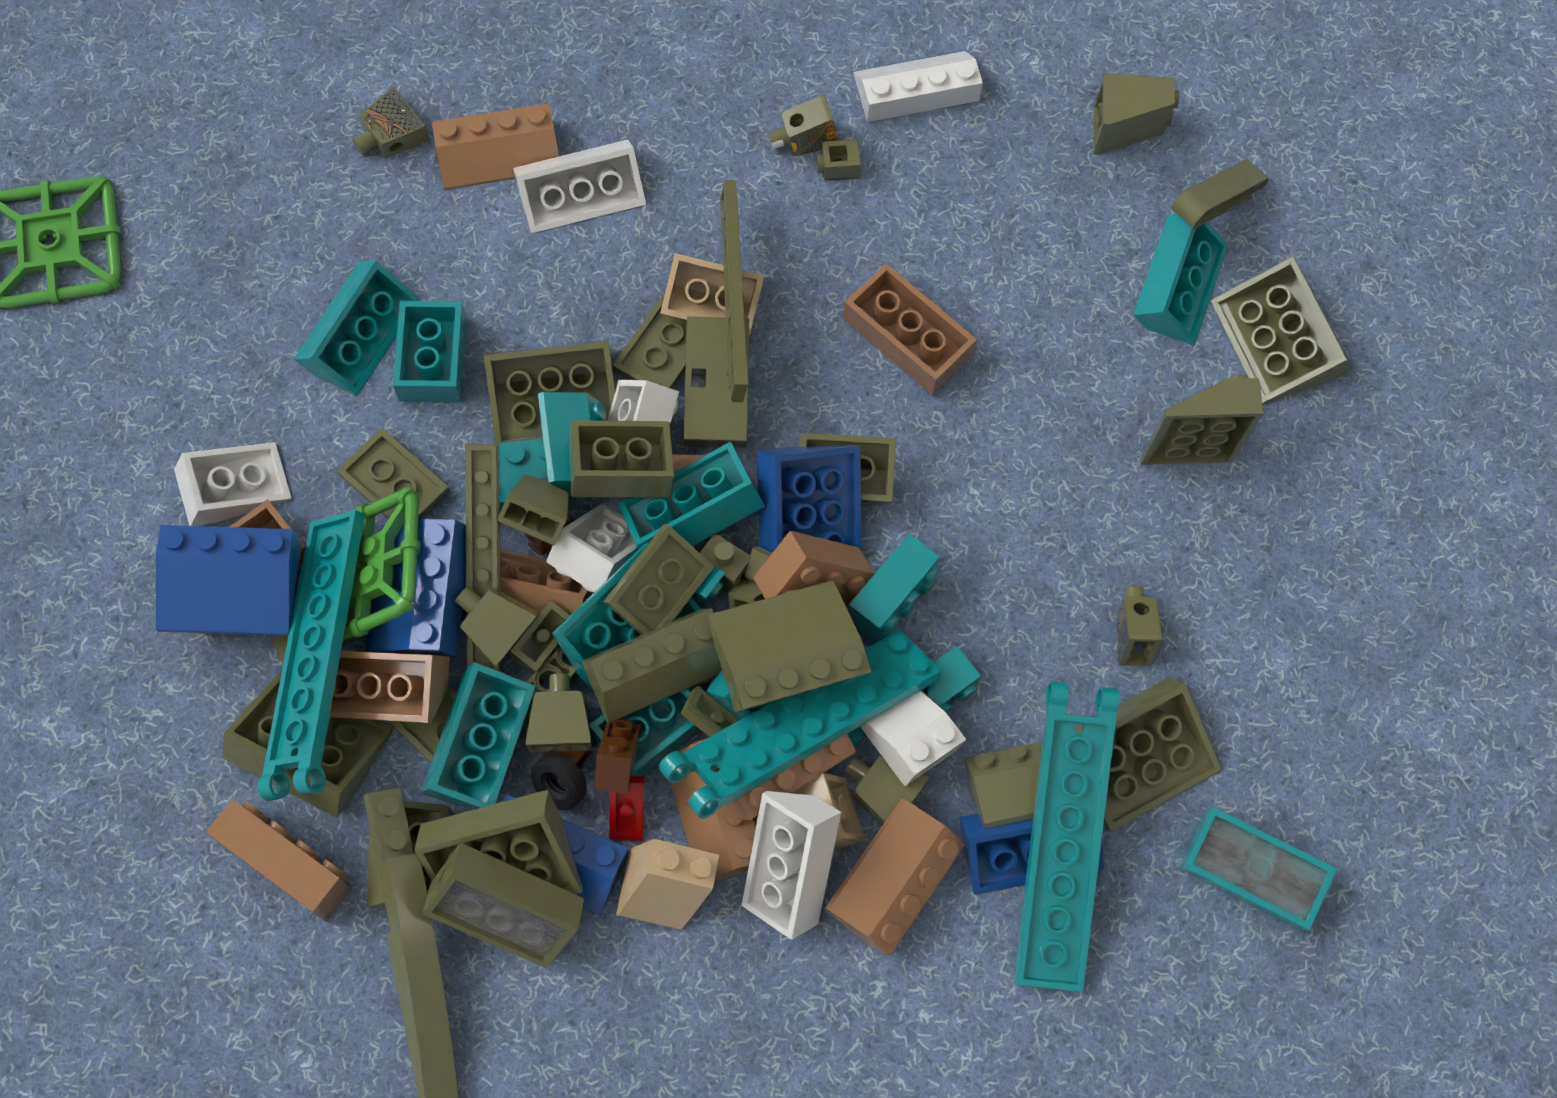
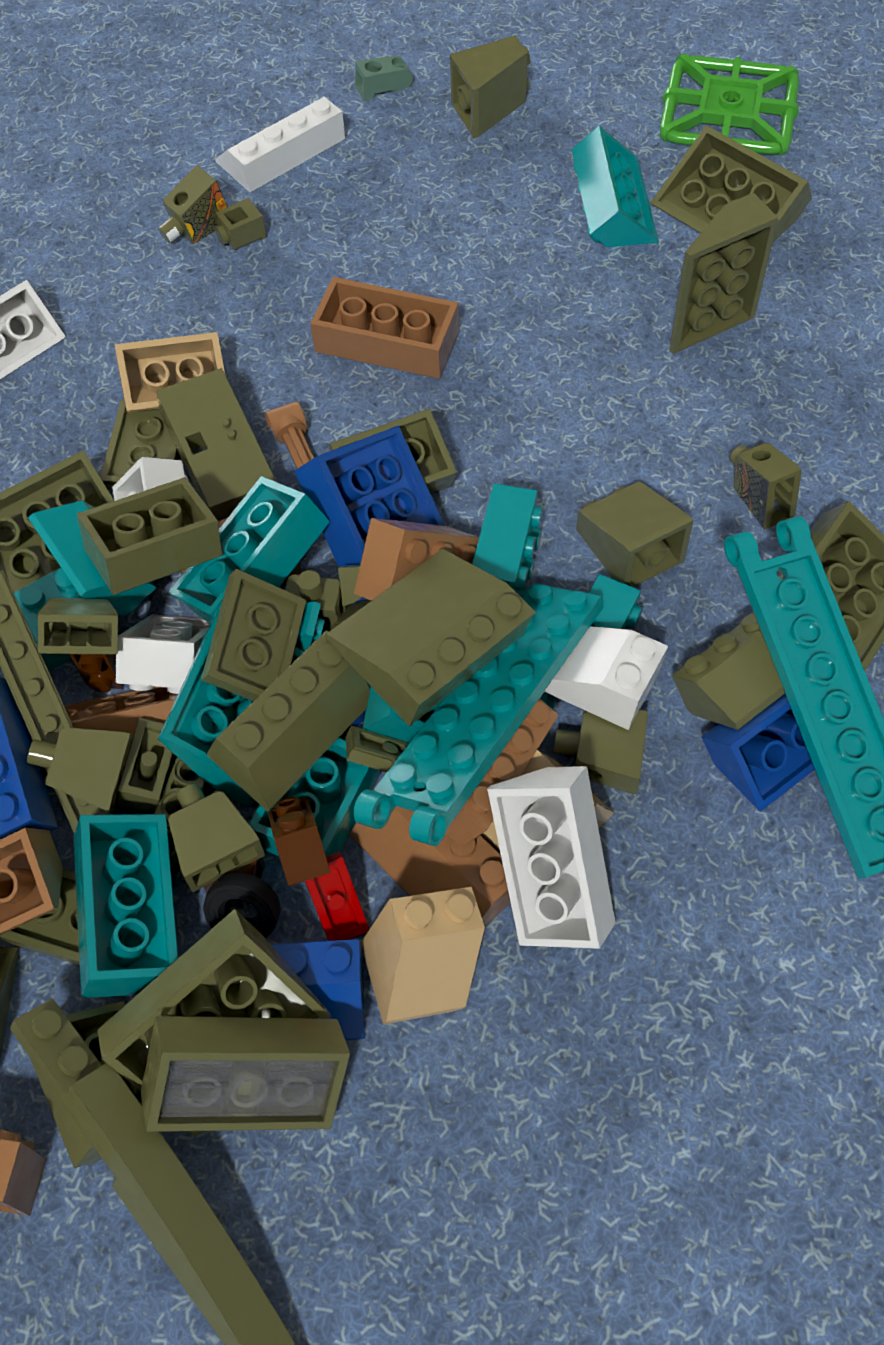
camera: 20 degrees left, 10 degrees down
(733, 292) = (196, 349): olive tile -> none
(784, 385) = (289, 428): none -> medium nougat axle
(895, 877) = (673, 829): medium nougat slope -> none
(1006, 620) = (635, 533): none -> olive slope
(1044, 49) = (381, 75): none -> sand green leg
(1219, 193) = (608, 107): olive beam -> none
(1352, 243) = (742, 112): none -> bright green plate

